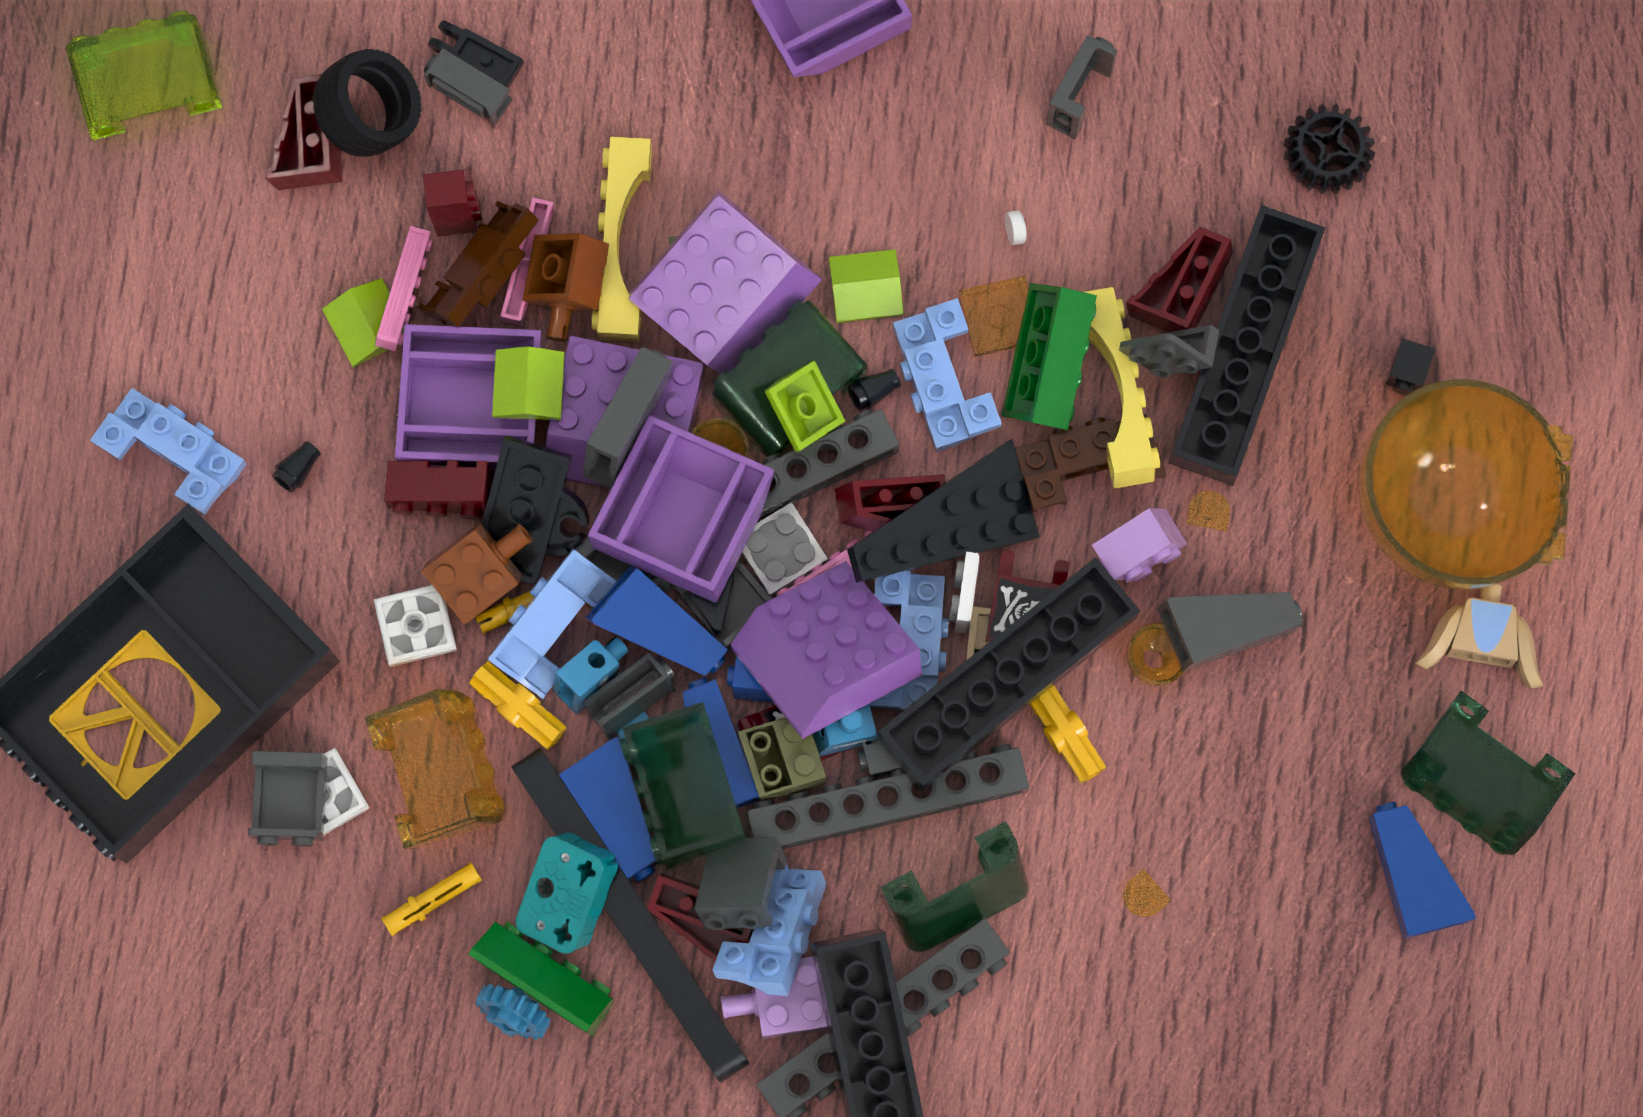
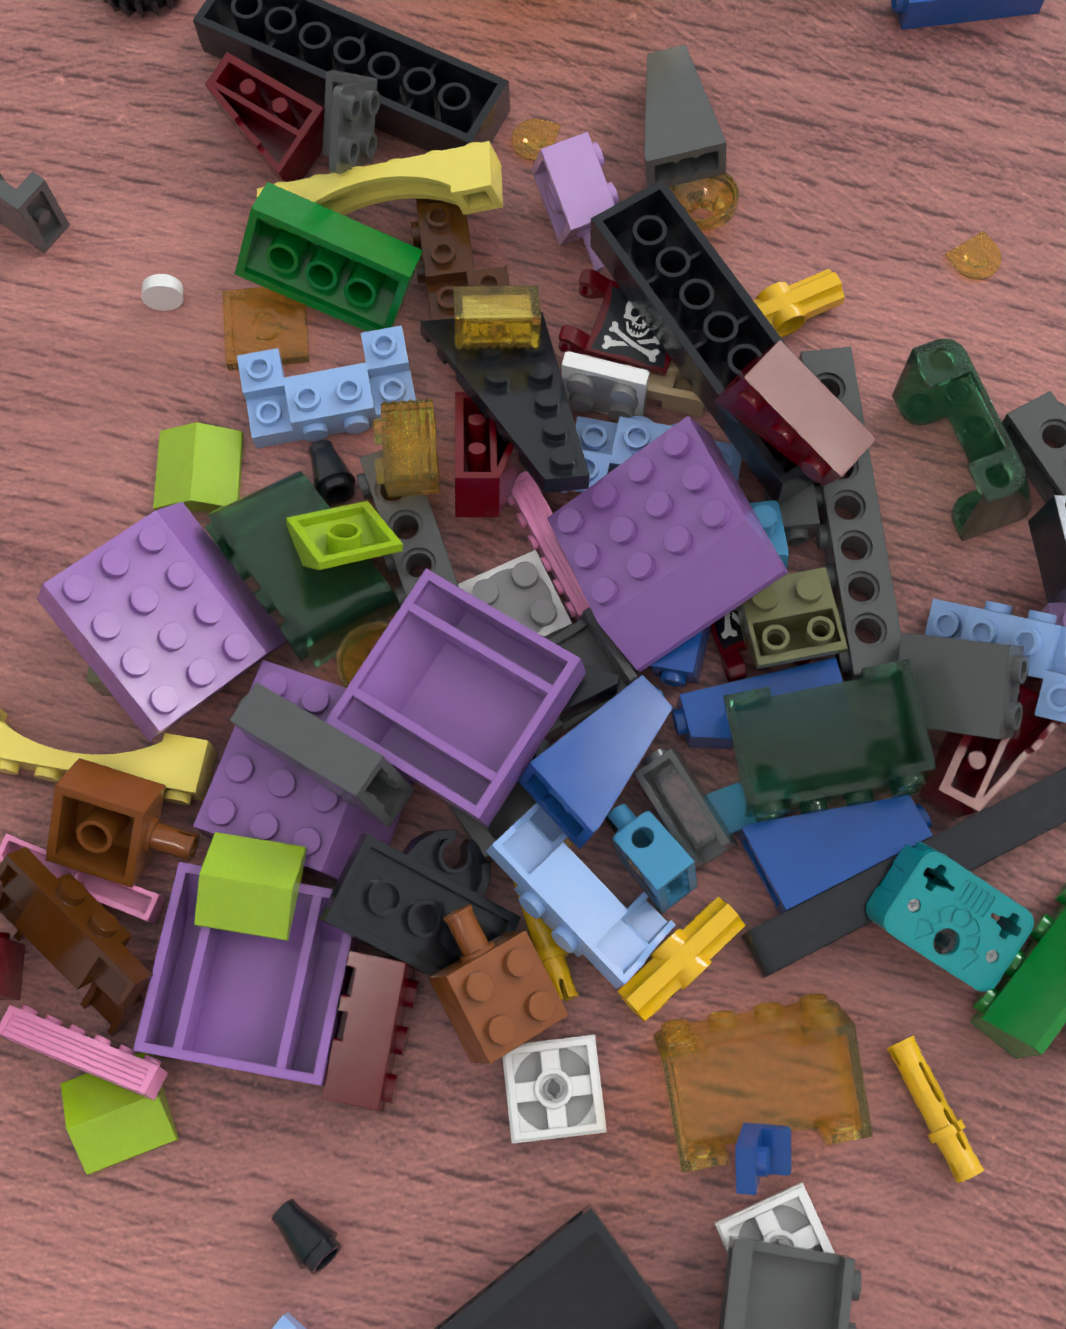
camera: 80 degrees left, 5 degrees down
(385, 771) = (761, 1152): none -> blue bracket
(886, 444) = (409, 448): none -> clear yellow brick
(924, 729) = (796, 414): none -> wedge
(1010, 496) = (496, 316): none -> clear yellow brick

